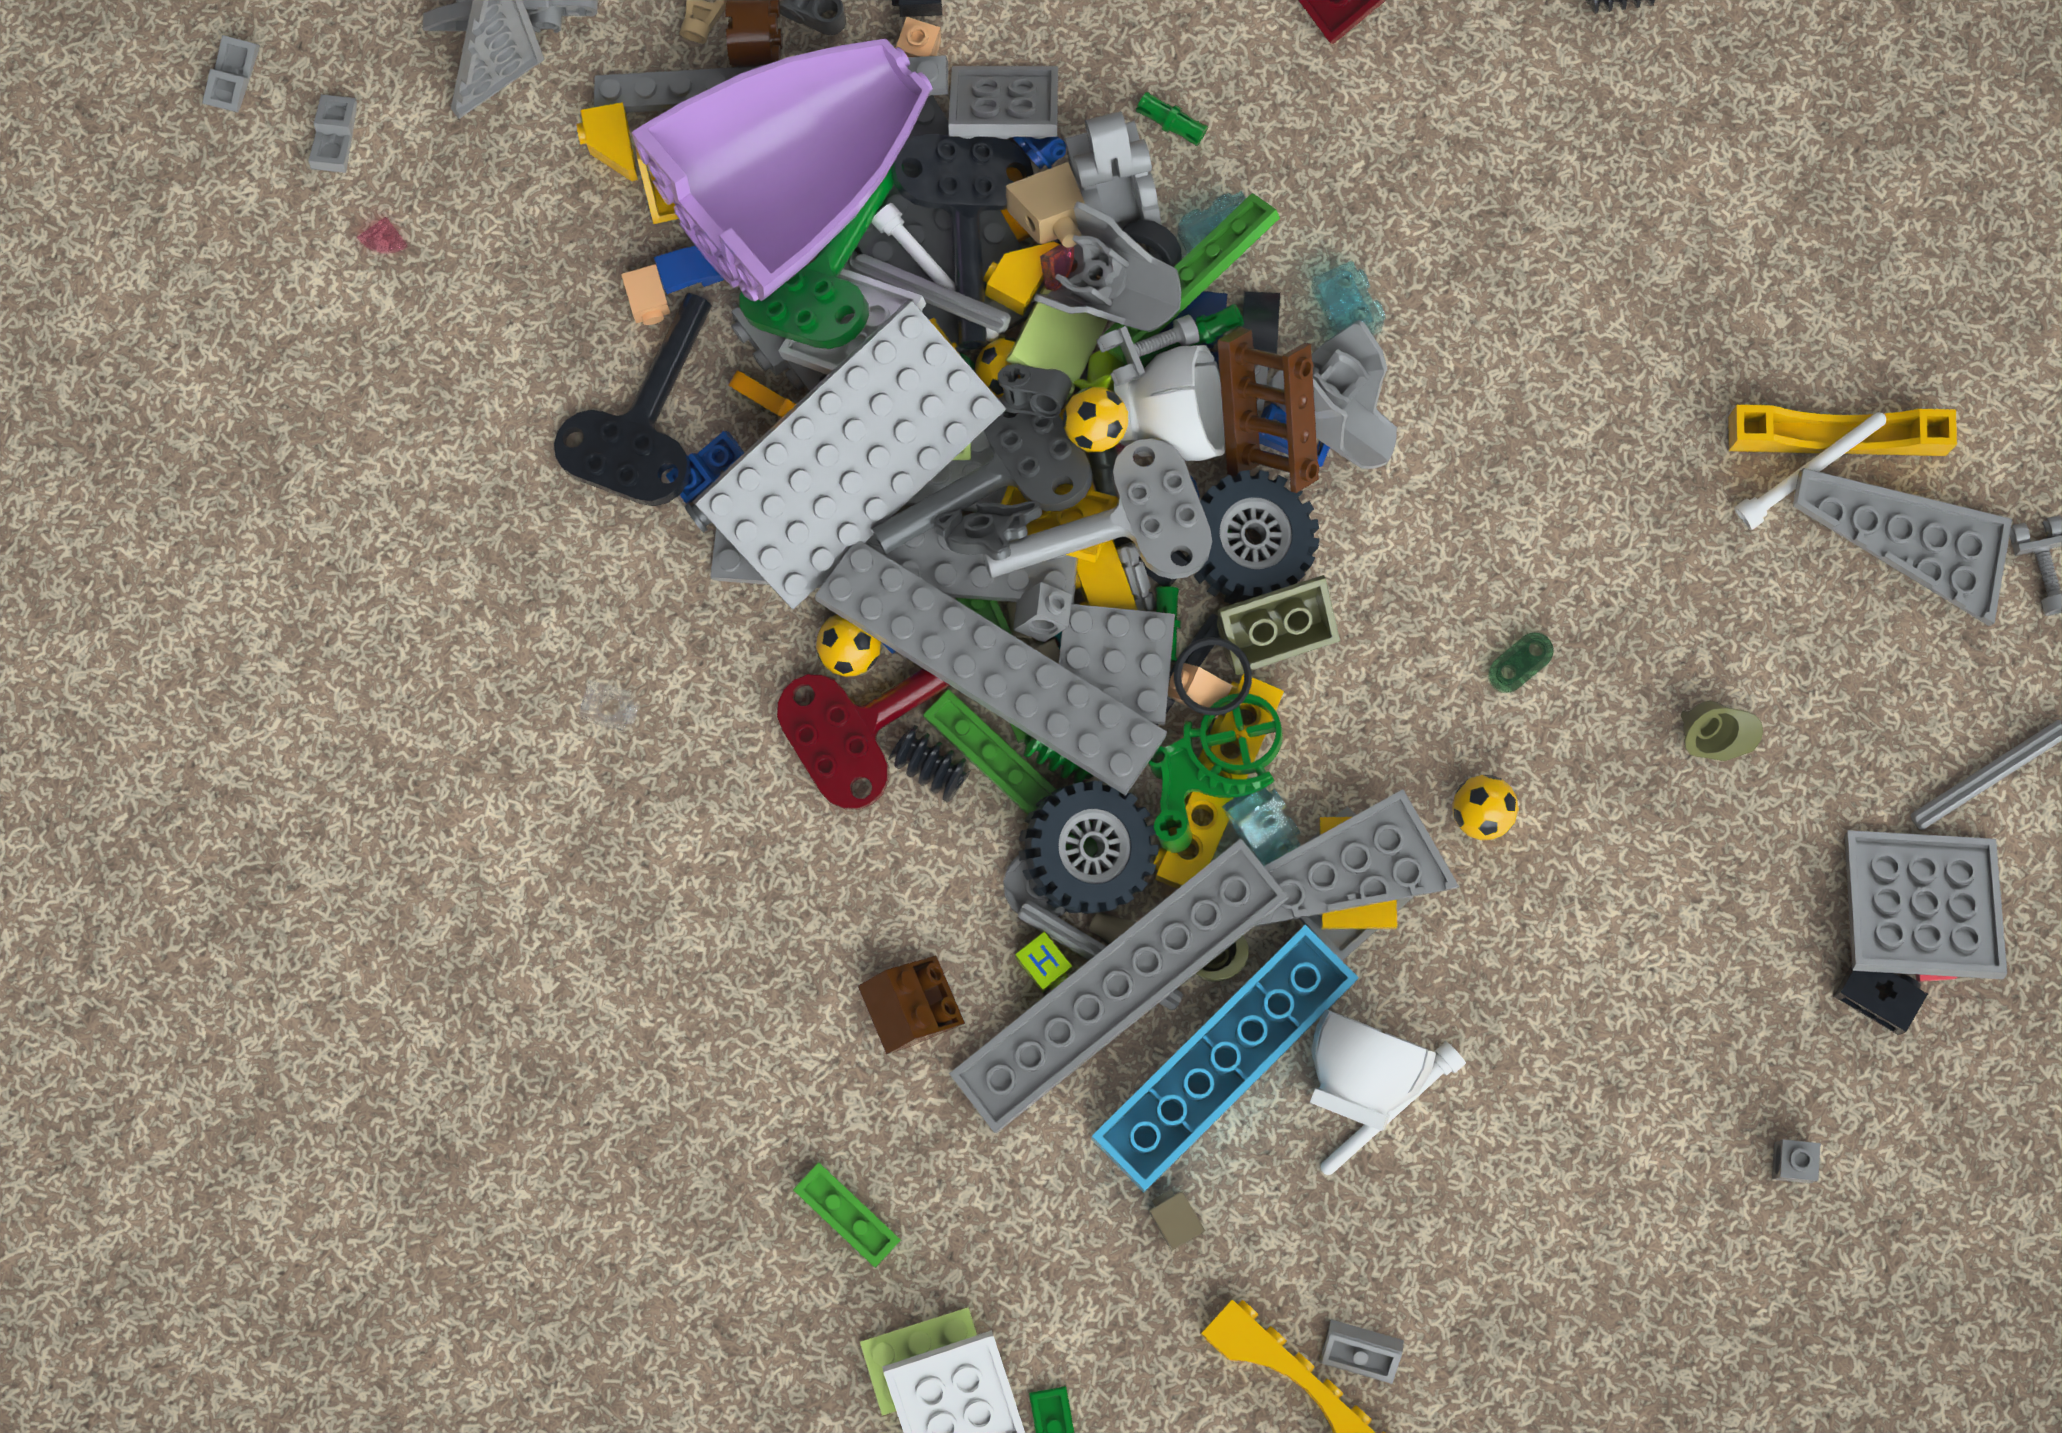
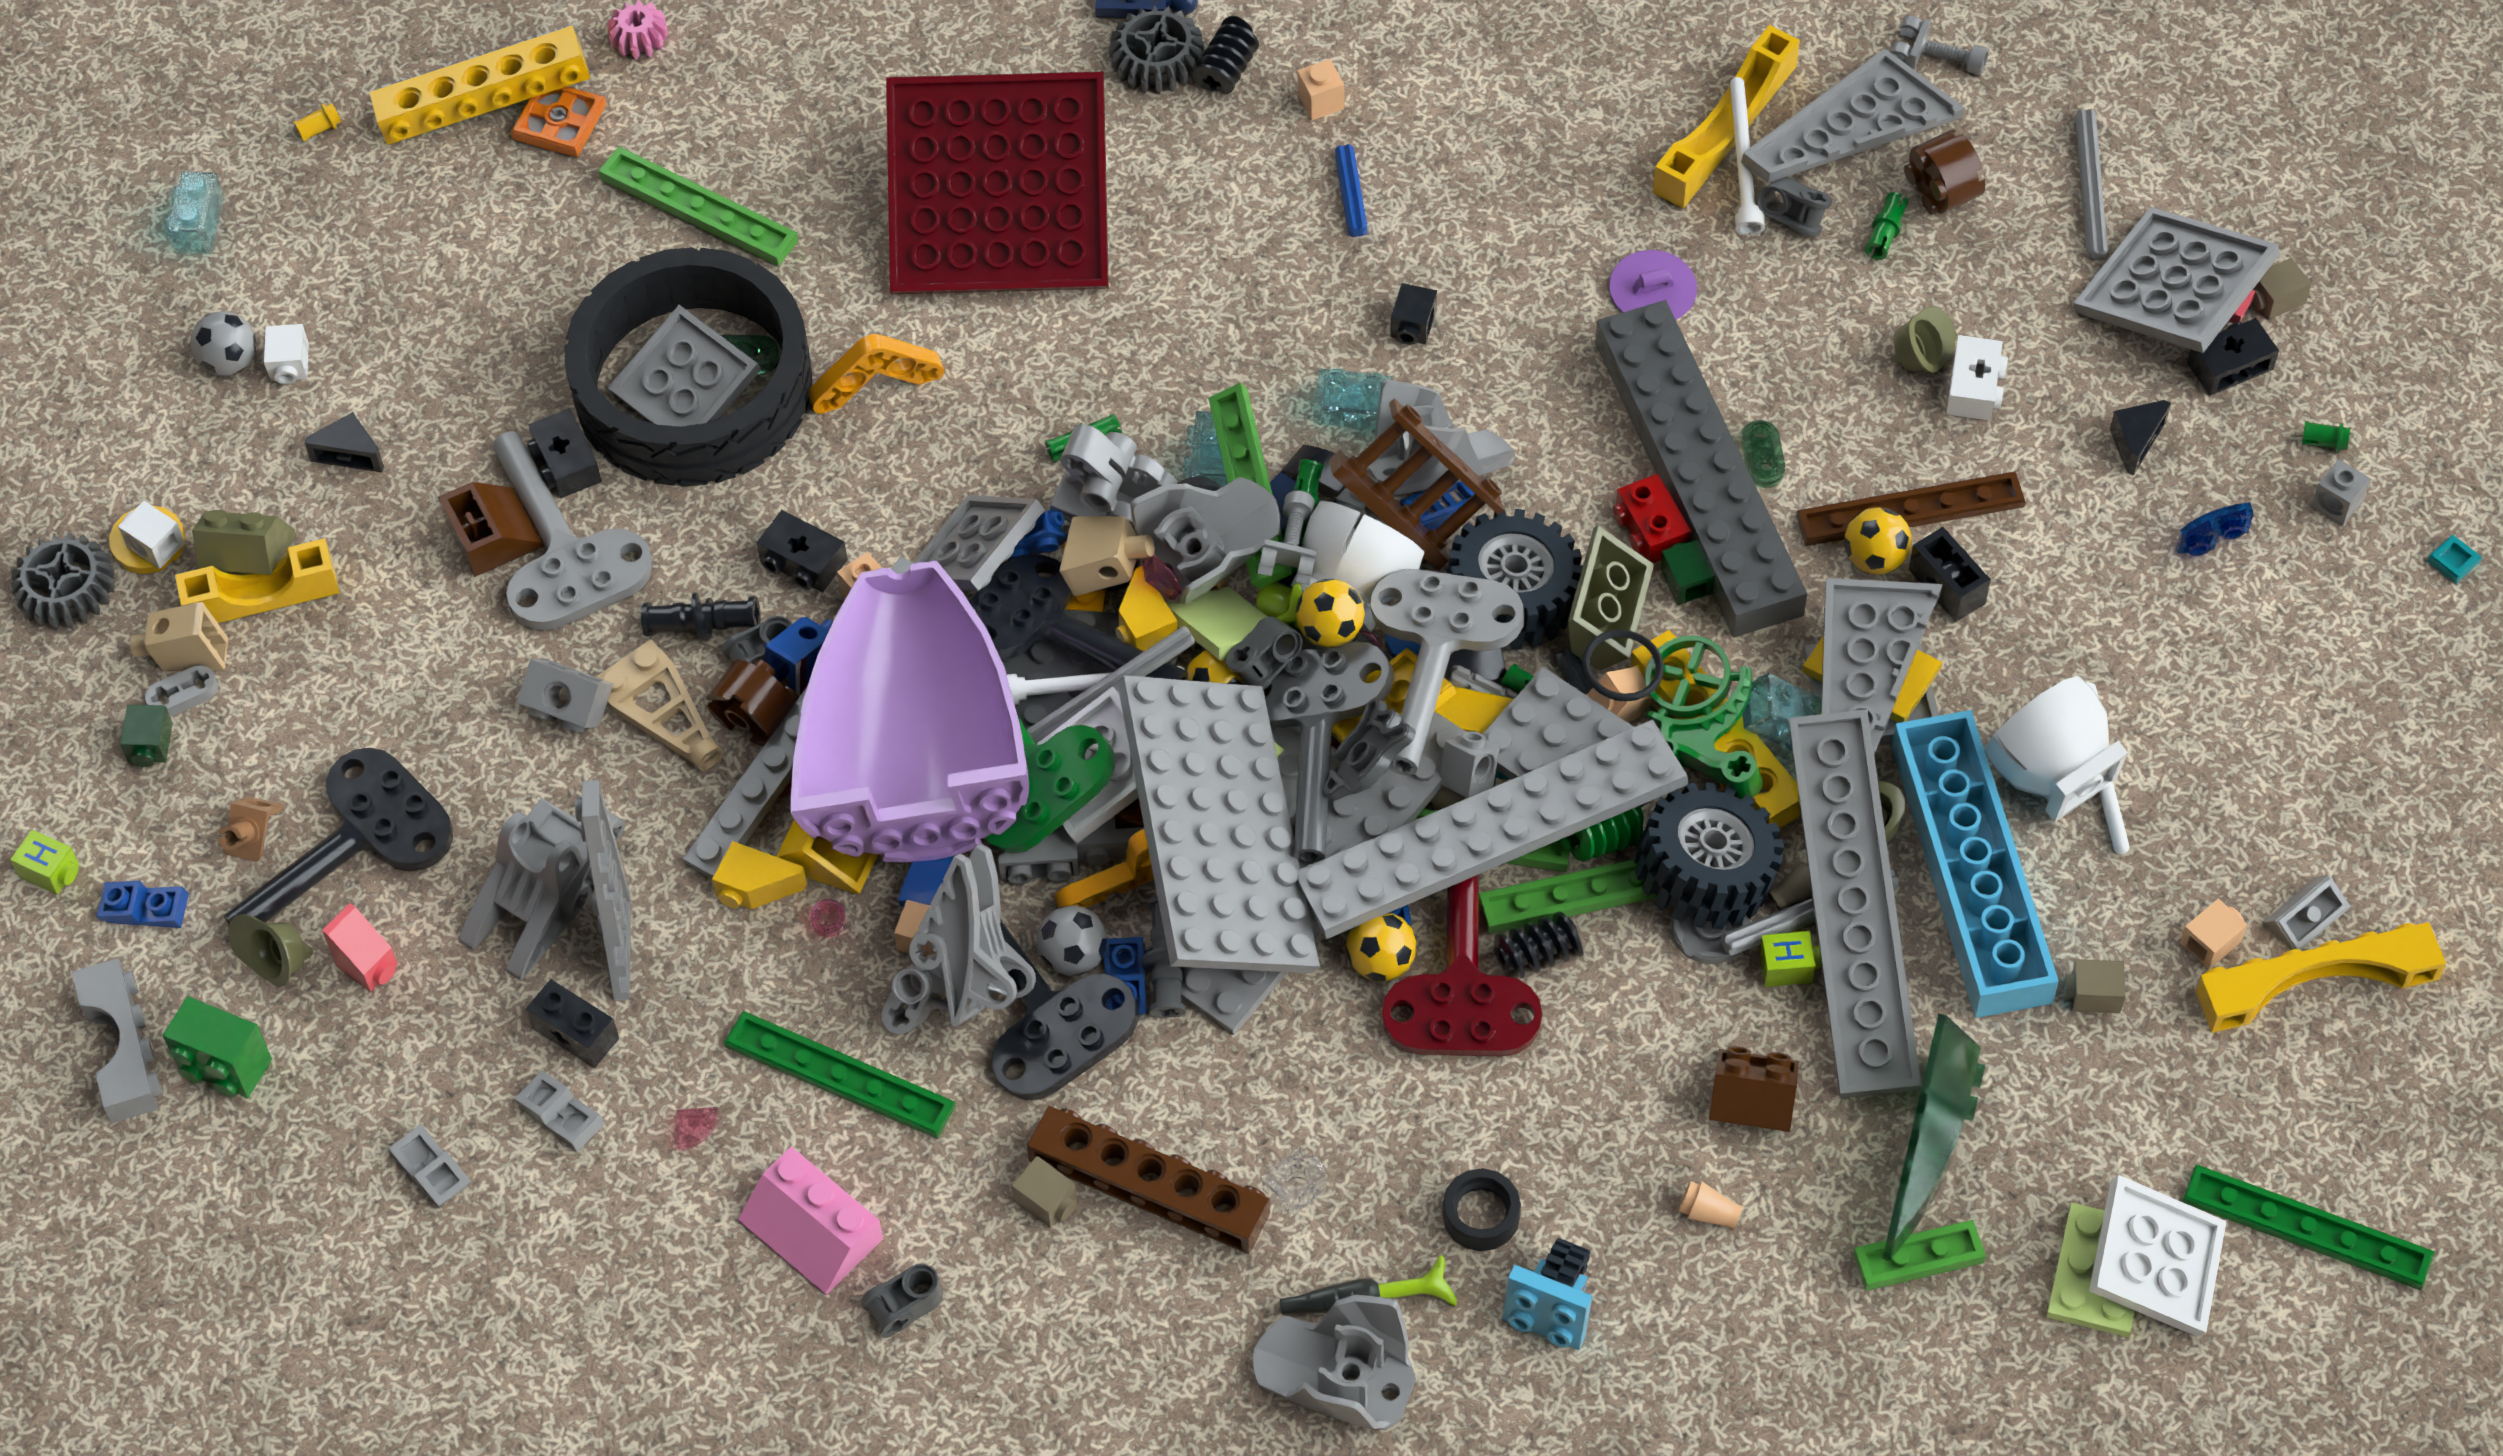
camera: 55 degrees left, 20 degrees down
(329, 481) = (901, 1301): none -> dark grey piece
(355, 374) = (810, 1221): none -> bright pink slope
(402, 93) = (572, 1023): none -> black brick
(463, 812) = (1354, 1339): none -> light grey piece
(483, 528) = (1045, 1192): none -> dark tan brick
(491, 313) = (840, 1074): none -> green tile
(523, 508) = (1160, 1197): none -> reddish brown brick
(552, 817) = (1323, 1299): none -> piece
(619, 225) = (830, 906): none -> clear pink bush
(620, 337) = (968, 951): none -> light grey piece
(631, 957) = (1552, 1296): none -> medium azure plate
(664, 833) = (1481, 1238): none -> black tyre
(702, 409) = (1071, 940): none -> light grey piece
(787, 1027) = (1709, 1206): none -> light nougat cone
(815, 32) = (795, 651): none -> blue torso
(968, 1164) = (1936, 1127): none -> clear green wedge
(1288, 1288) = (2214, 933): none -> light nougat brick
(1357, 670) = (1687, 572): none -> dark green brick
(1390, 612) = (1650, 517): none -> red brick
(1464, 300) = (1413, 314): none -> black brick
(1466, 619) = (1701, 467): none -> dark grey brick
(1492, 883) = (1944, 562): none -> black brick
(1550, 815) = (1917, 506): none -> reddish brown tile
(1560, 172) = (1351, 190): none -> blue axle
(1630, 474) = (1651, 278): none -> medium lavender shield
(1640, 83) = (1320, 89): none -> light nougat brick
(1676, 1068) = (2202, 533): none -> clear blue slope
(1727, 777) = (1975, 378): none -> white brick
(1747, 957) = (2136, 431): none -> black slope
(1790, 538) = (1801, 207): none -> dark grey piece
(1798, 1291) = (2454, 559): none -> teal tile
(1824, 629) = (1886, 225): none -> green pin
(1852, 1117) = (2326, 436): none -> green pin
(1905, 647) = (1945, 172): none -> reddish brown brick
(1980, 997) = (2281, 289): none -> dark tan brick

